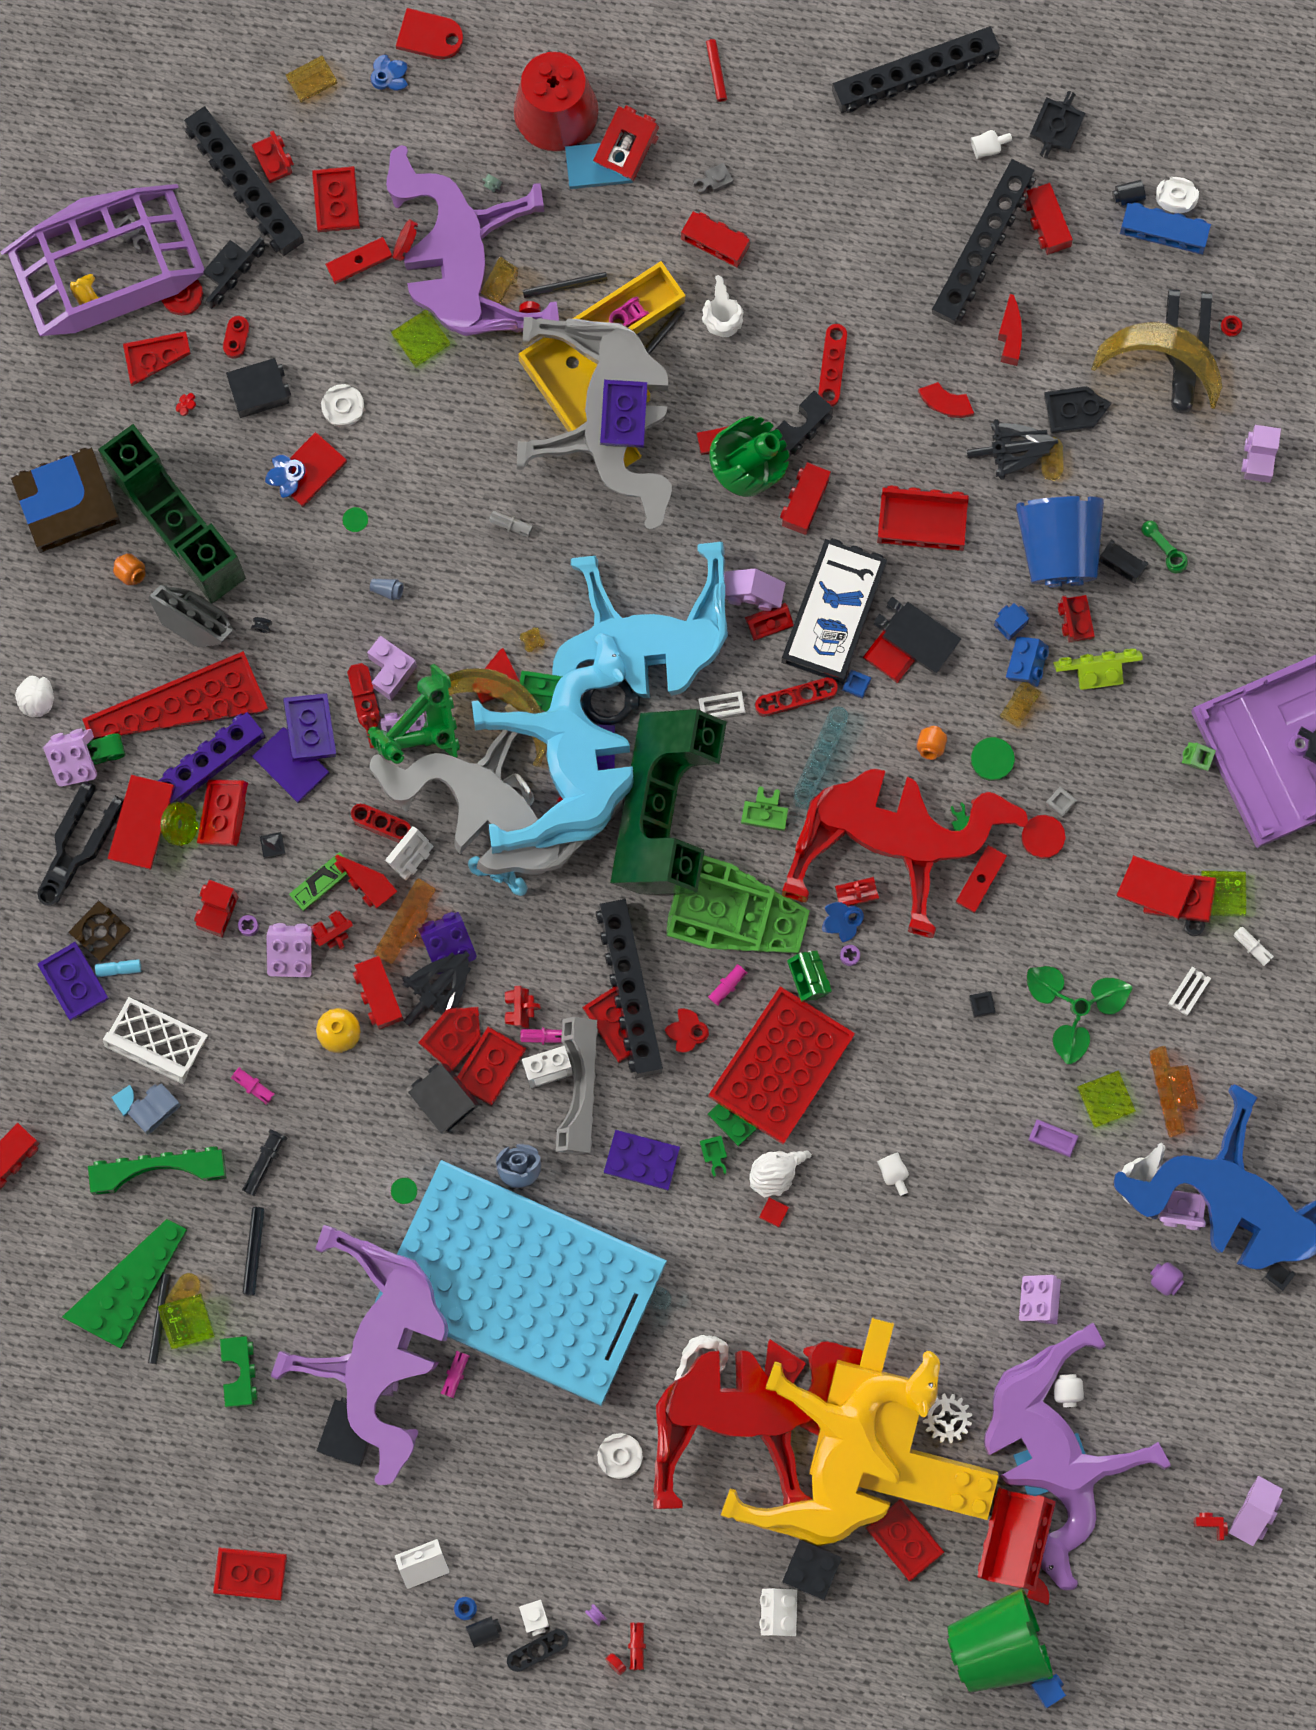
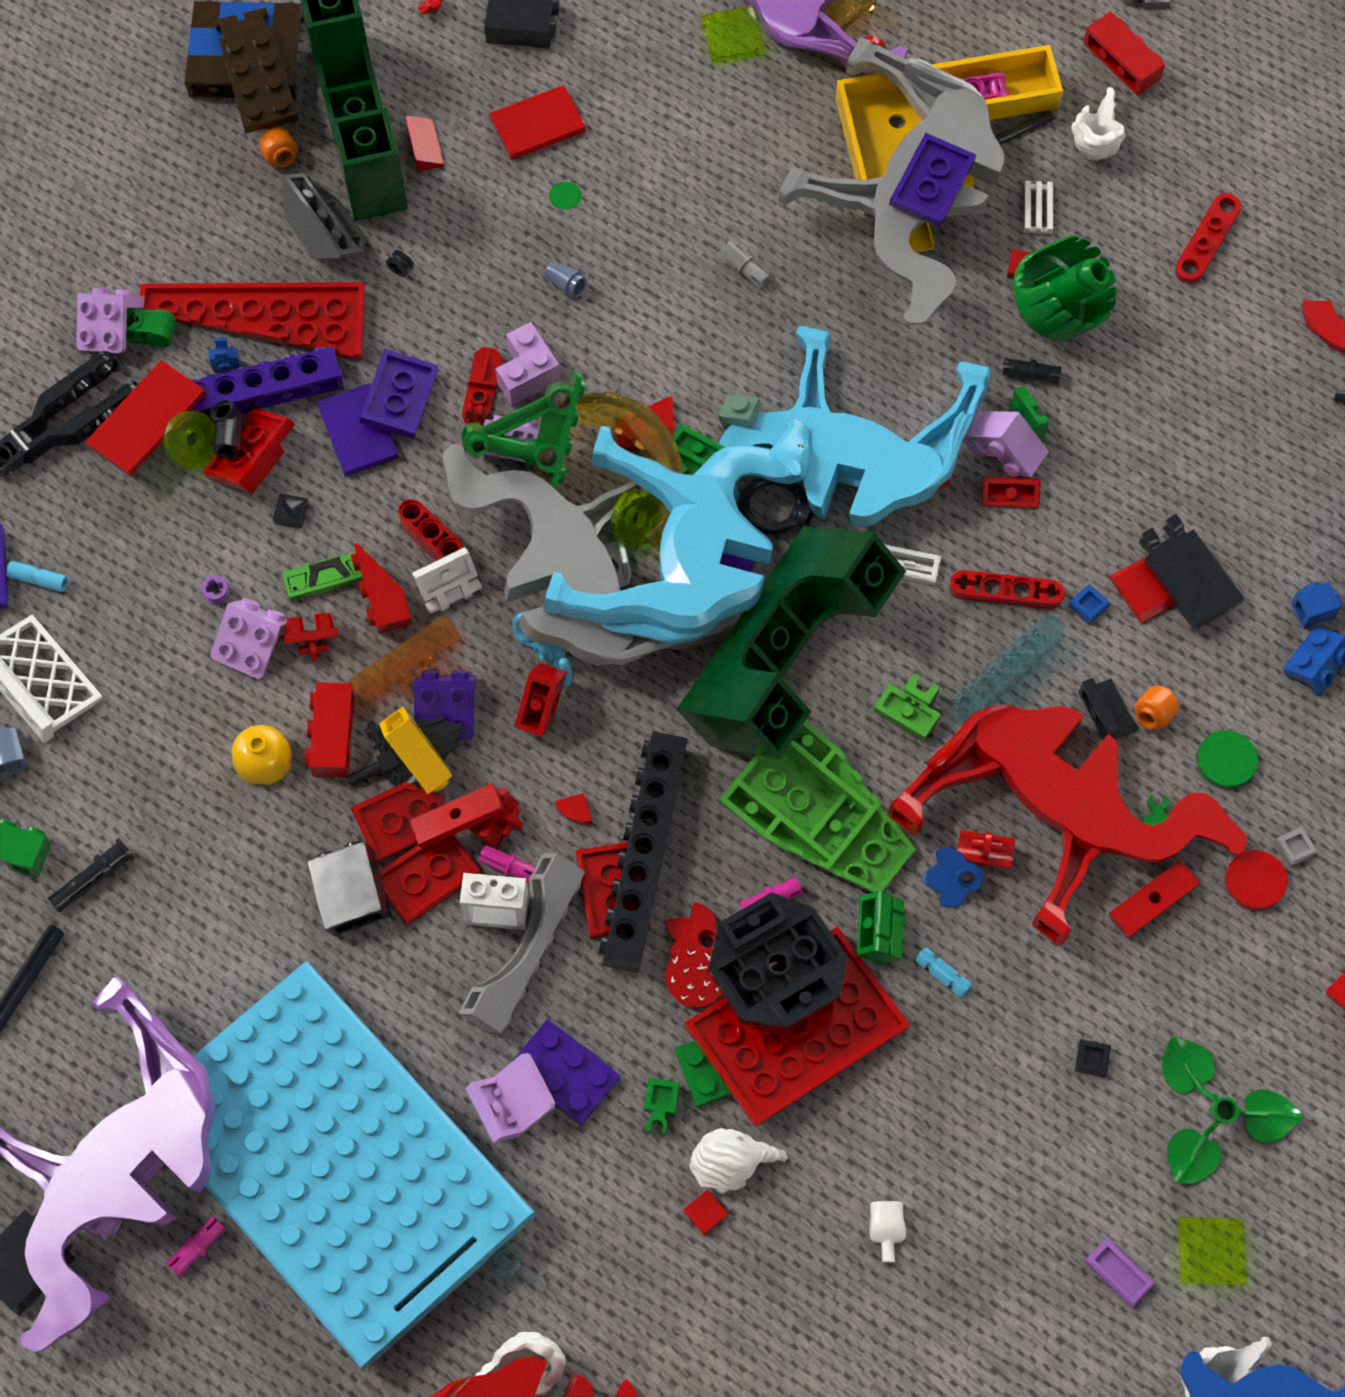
camera: 20 degrees right, 10 degrees down
(35, 696) = (101, 240): white hair -> none
(86, 517) = (256, 71): none -> dark brown hinge
(122, 931) = (29, 552): dark brown piece -> none
(172, 752) = (224, 358): none -> blue plate
(202, 805) = (228, 429): none -> black piece
(217, 908) = (188, 552): red brick -> none
(233, 520) = (424, 143): none -> slope
(252, 1086) = (124, 778): dark pink pin -> none
(282, 474) = (507, 114): blue plate -> none
(347, 411) = (607, 78): white tile -> none
(404, 1190) = (247, 984): green sticker -> none
(445, 985) = (415, 750): none -> yellow slope
(485, 1028) = (457, 815): none -> red tile
(513, 913) = (540, 699): none -> red brick
(519, 764) = (623, 513): none -> clear neon green tile
(519, 1165) = (402, 1011): sand blue cylinder -> none
(532, 633) = (708, 394): clear yellow plate -> none
(556, 642) = (739, 411): none -> sand green bracket
(565, 284) = (926, 40): black bar -> none
(569, 978) = (575, 809): none -> red tile
(617, 1193) = (511, 1099): none -> lavender bracket
(696, 373) = (1039, 188): none -> white tile
(701, 1059) = (689, 979): none -> red tile
(748, 523) = (1031, 370): none -> black pin
(756, 556) = (1027, 406): none -> green wing
(758, 1009) = (781, 933): none -> black piece
(805, 498) = (1114, 368): red brick -> none
(817, 412) = (1167, 280): black arch -> none
(834, 610) = (1096, 507): brick -> none
(854, 949) = (936, 929): medium lavender bush -> none
(862, 987) = (943, 972): none -> medium azure axle
(898, 756) = (1106, 708): none -> black panel
(923, 518) = (1251, 445): red panel -> none
(1020, 704) = (1289, 708): clear yellow slope -> none
(1174, 1090) = (1309, 1277): clear orange bracket -> none

